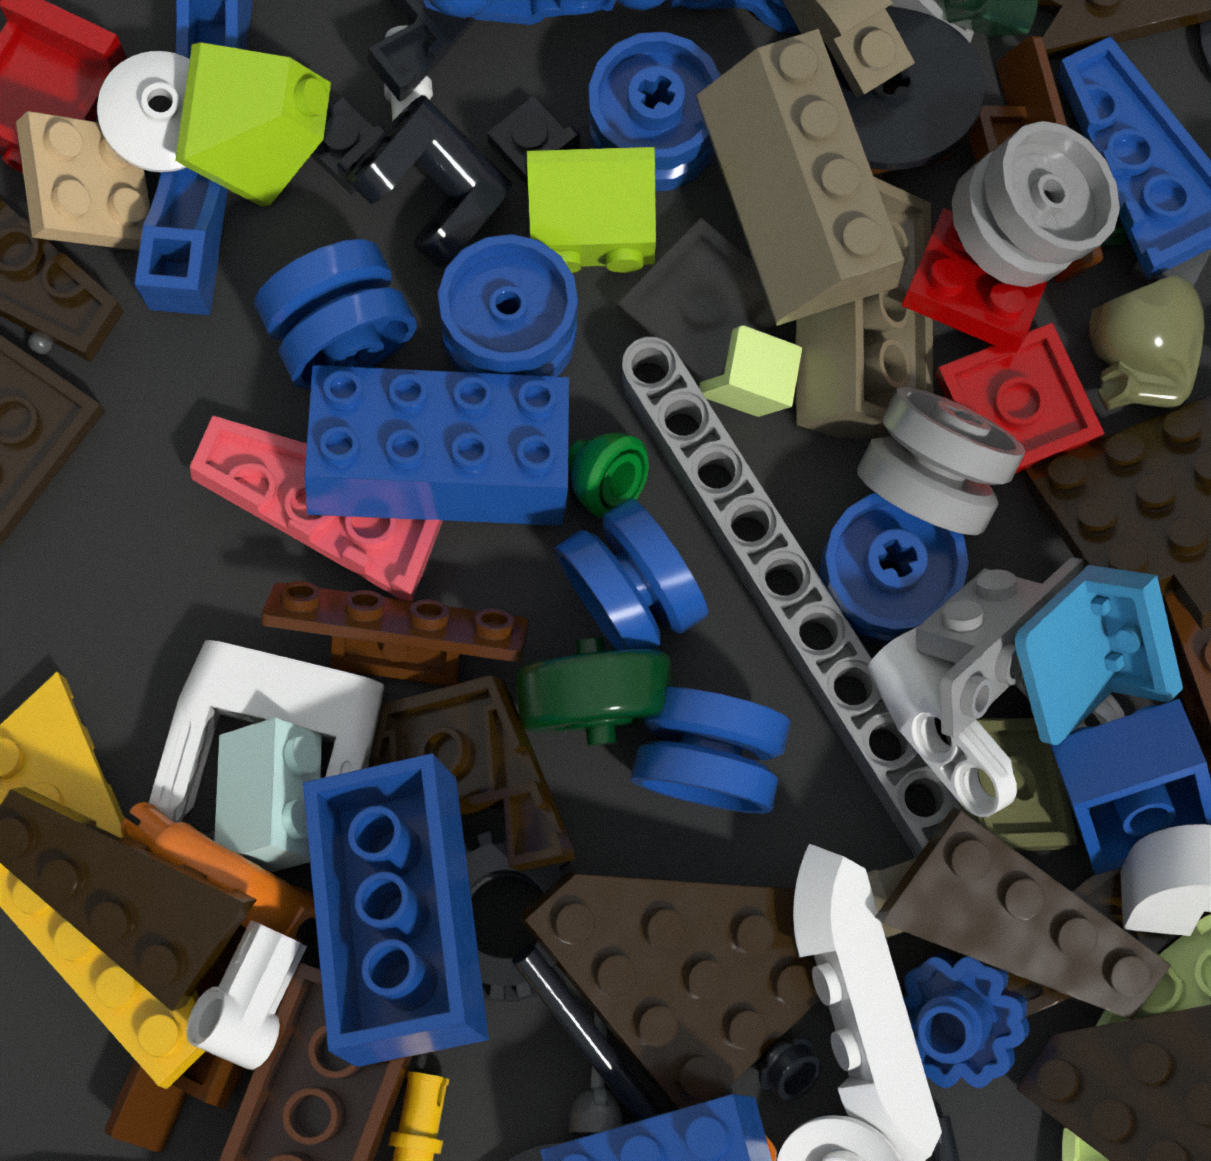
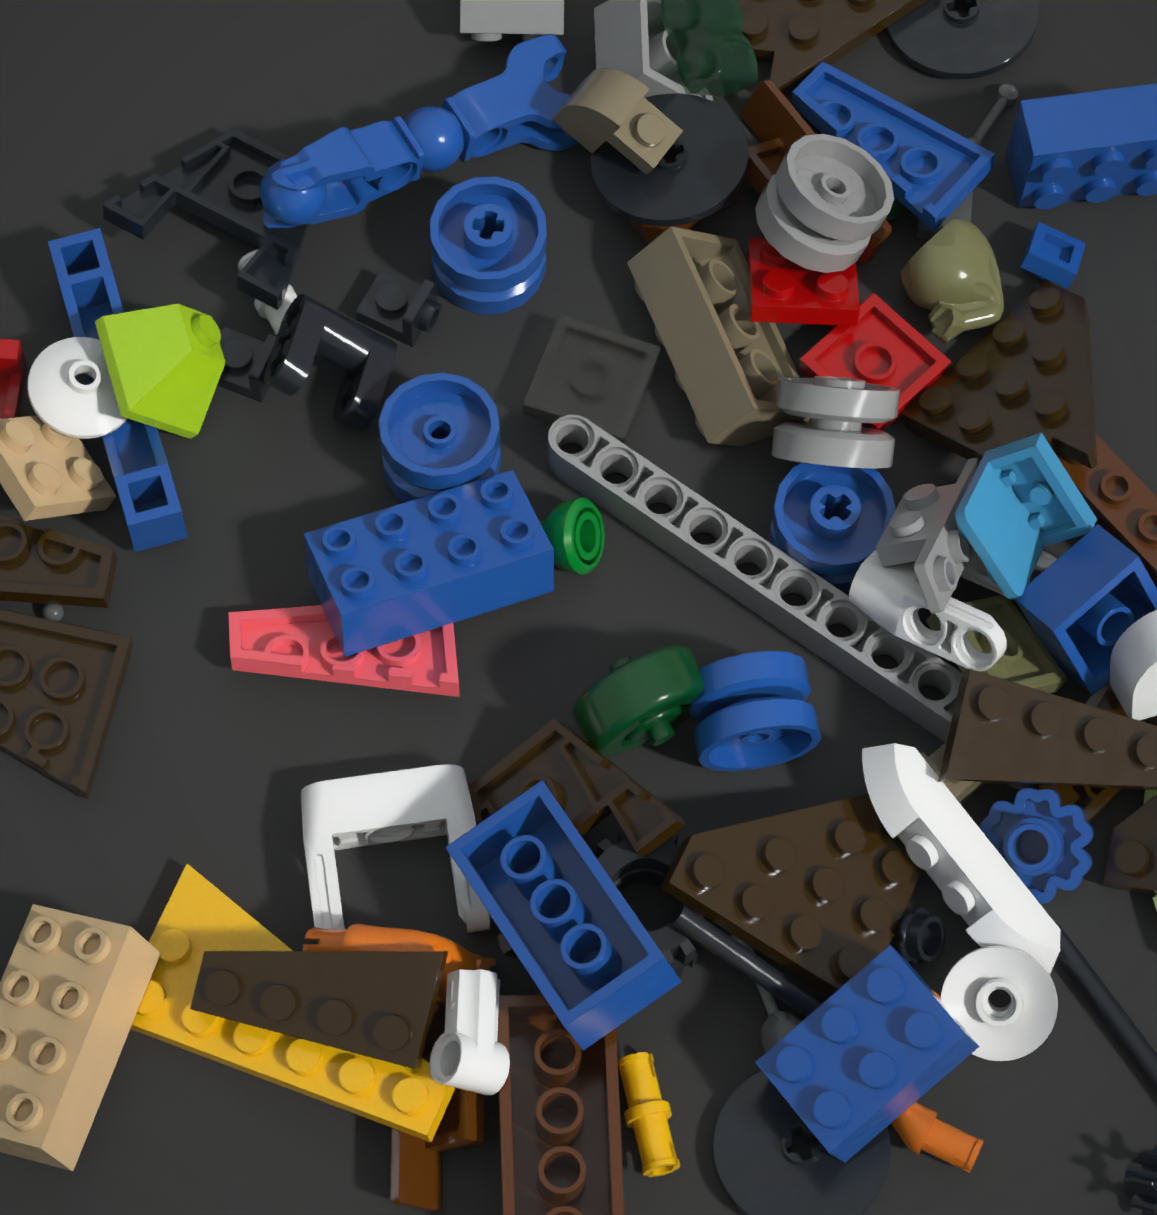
camera: 25 degrees left, 10 degrees down
(263, 793) = (412, 879): light aqua brick -> none
(335, 310) = (299, 488): blue wheel -> none
(395, 635) = (461, 724): reddish brown bracket -> none
(594, 206) = (474, 330): lime slope -> none
(632, 579) = (630, 602): blue wheel -> none
(757, 373) = (662, 415): yellowish green panel -> none
(800, 179) = (635, 247): dark tan slope -> none

